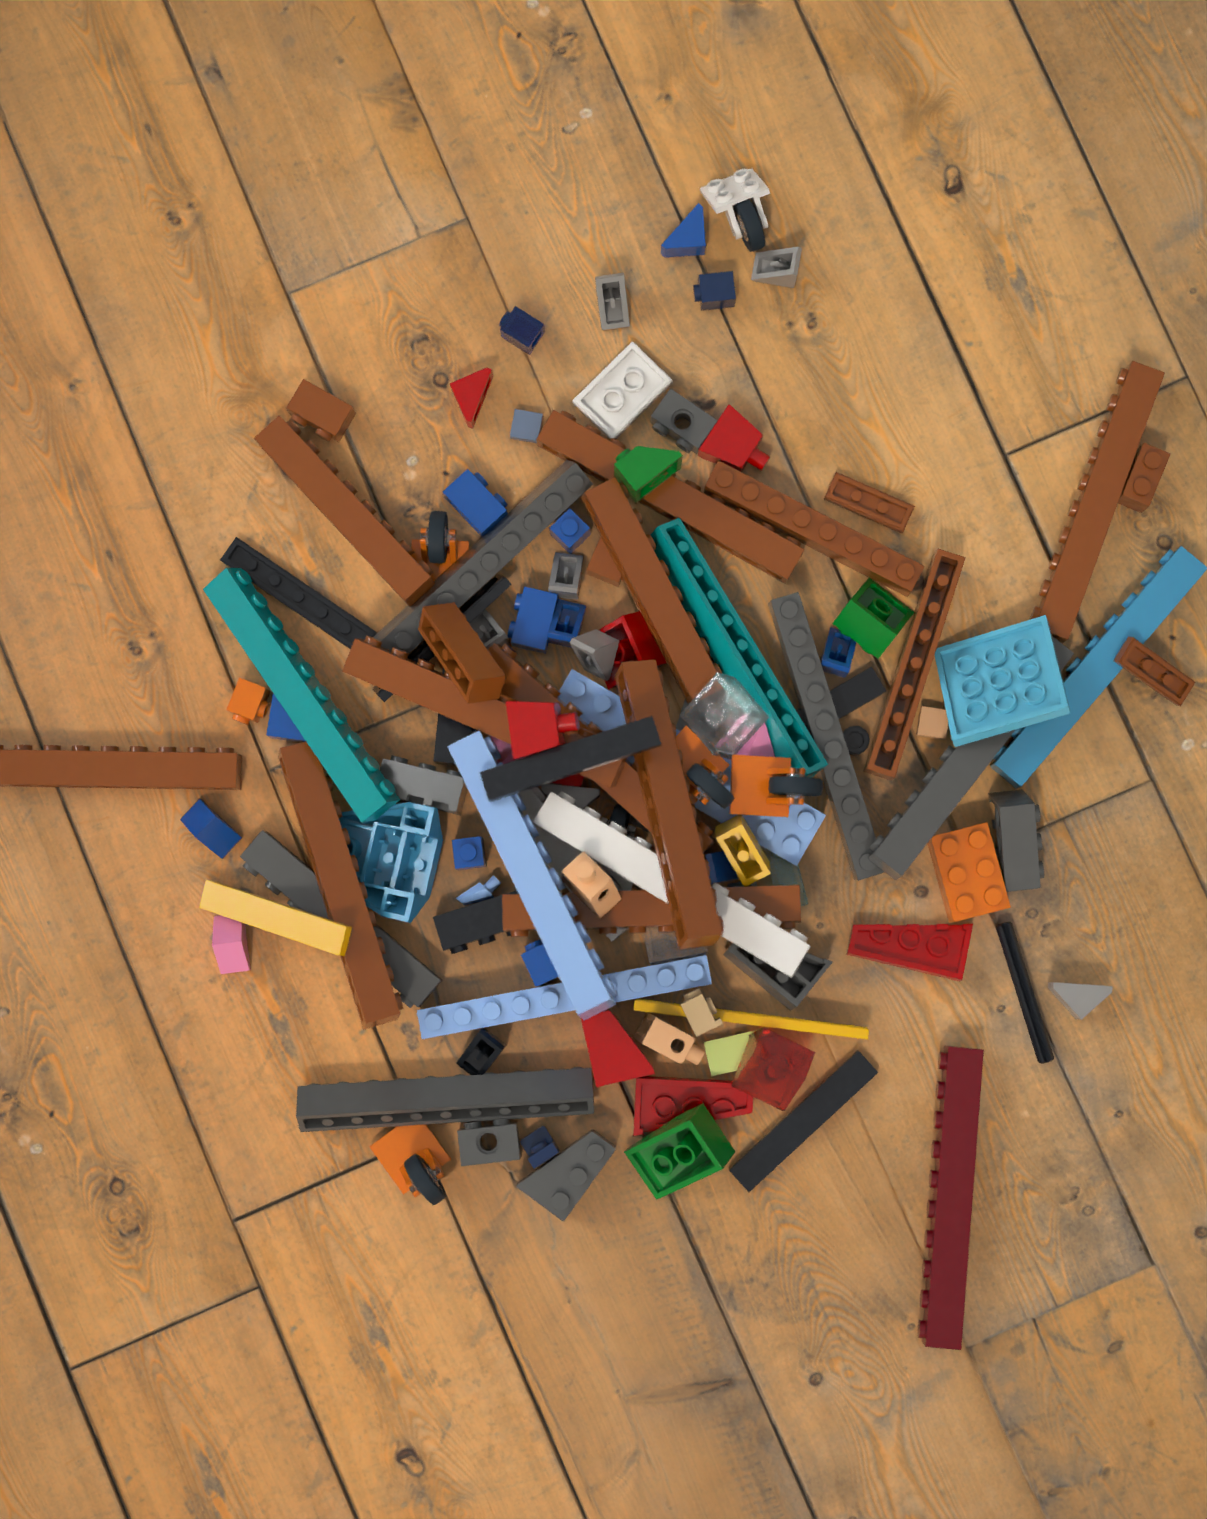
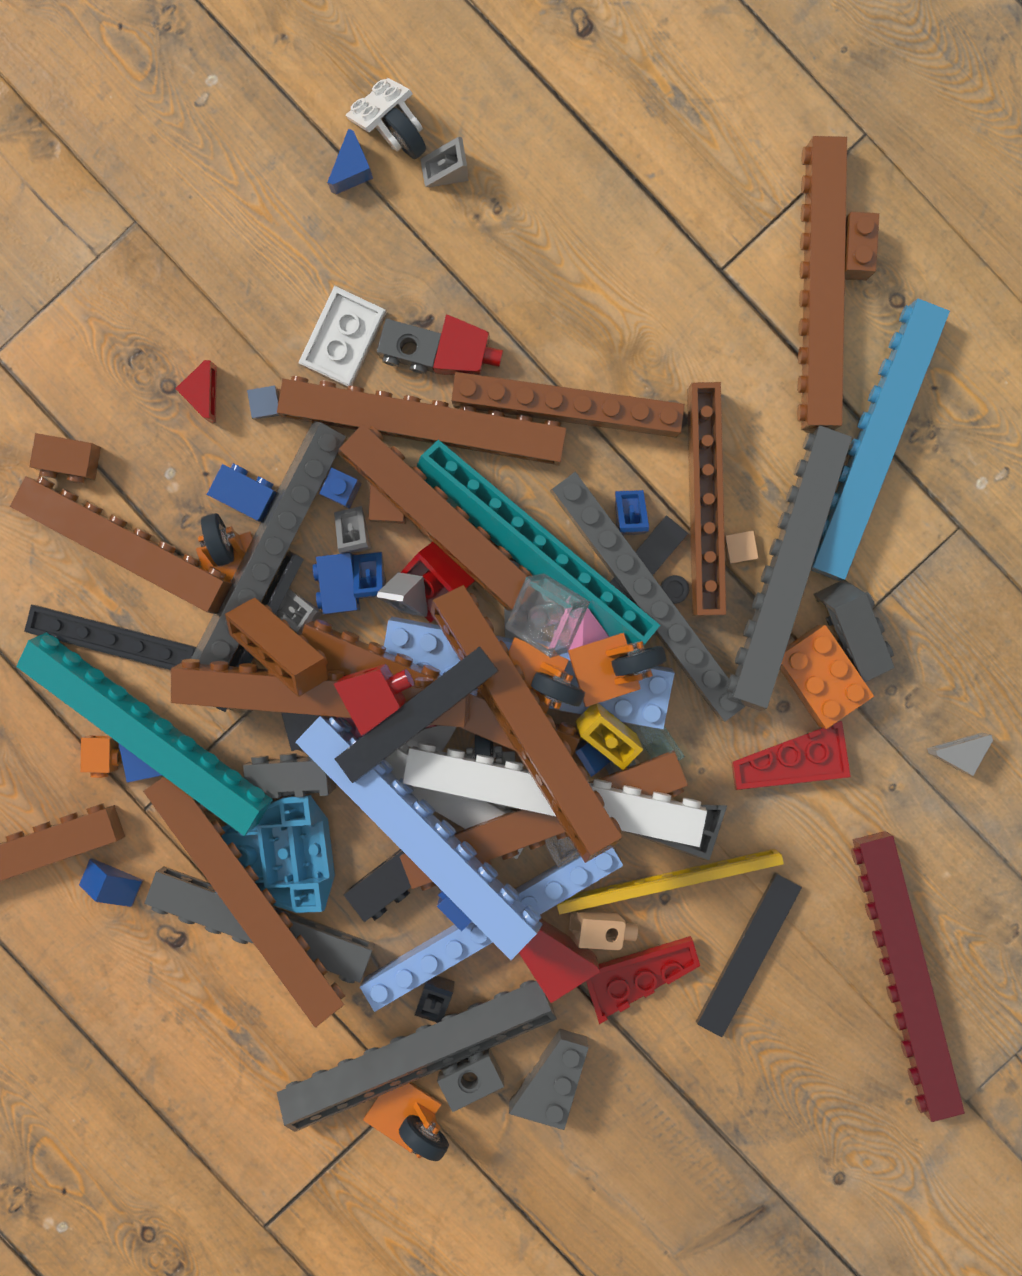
camera: 25 degrees left, 5 degrees up
(230, 945) = (167, 981): bright pink slope -> none
(276, 917) = (198, 951): yellow tile -> none
(468, 853) = (355, 824): blue brick -> none
(479, 892) = (378, 853): light blue bar -> none
(521, 329) = (225, 312): clear blue brick -> none
(539, 1146) = (519, 1066): dark blue bracket -> none
(588, 882) = (479, 823): light nougat torso -> none
(612, 301) = (301, 253): light grey slope -> none
(645, 469) = (389, 405): green slope -> none
(681, 1152) = (649, 1025): green slope -> none
(700, 1012) = (621, 898): tan brick -> none
(715, 291) = (395, 209): dark blue brick -> none
(726, 1053) = (663, 916): yellowish green piece -> none
(772, 1068) = (705, 921): clear red slope -> none
(869, 502) = (610, 361): dark orange tile -> none
(873, 618) = (652, 469): green slope -> none
(1001, 681) = (796, 489): medium azure plate -> none
(1025, 992) = (910, 766): black axle -> none
(1154, 671) = (931, 426): dark orange tile -> none

